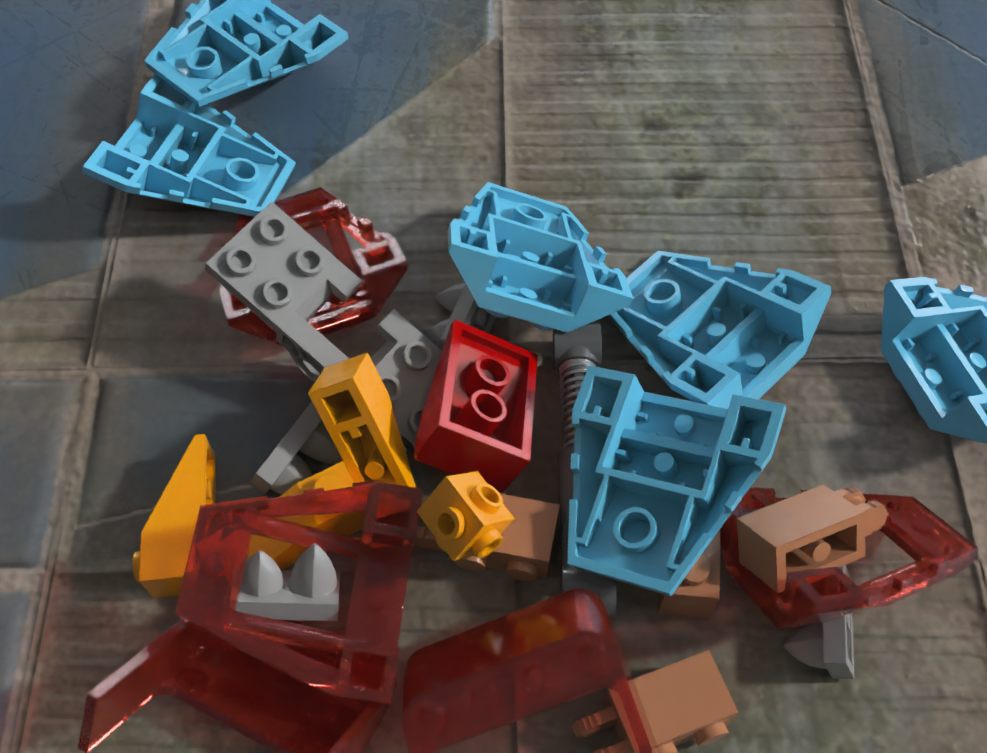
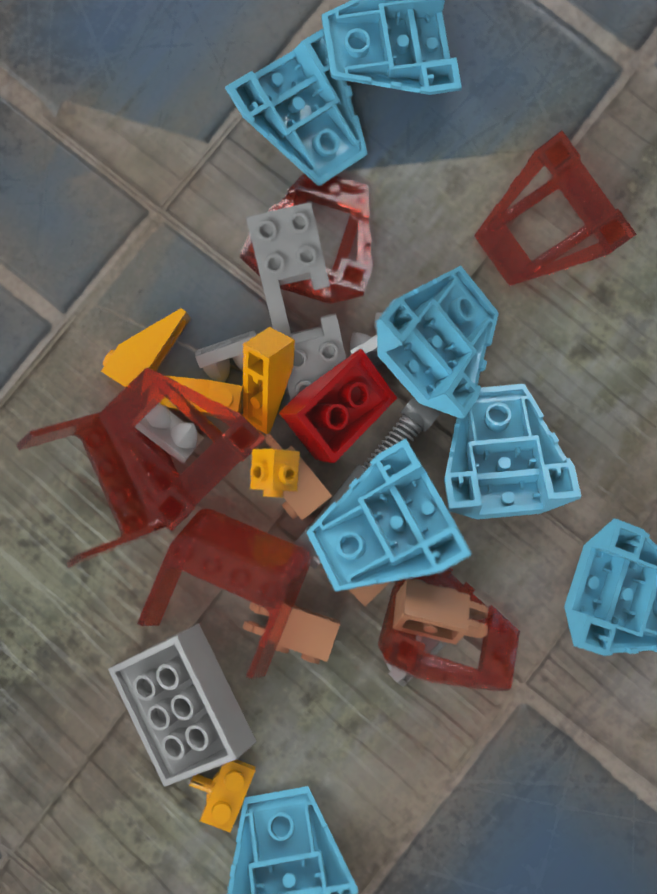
camera: 35 degrees right, 25 degrees up
(549, 54) = (583, 195): none -> clear red windscreen

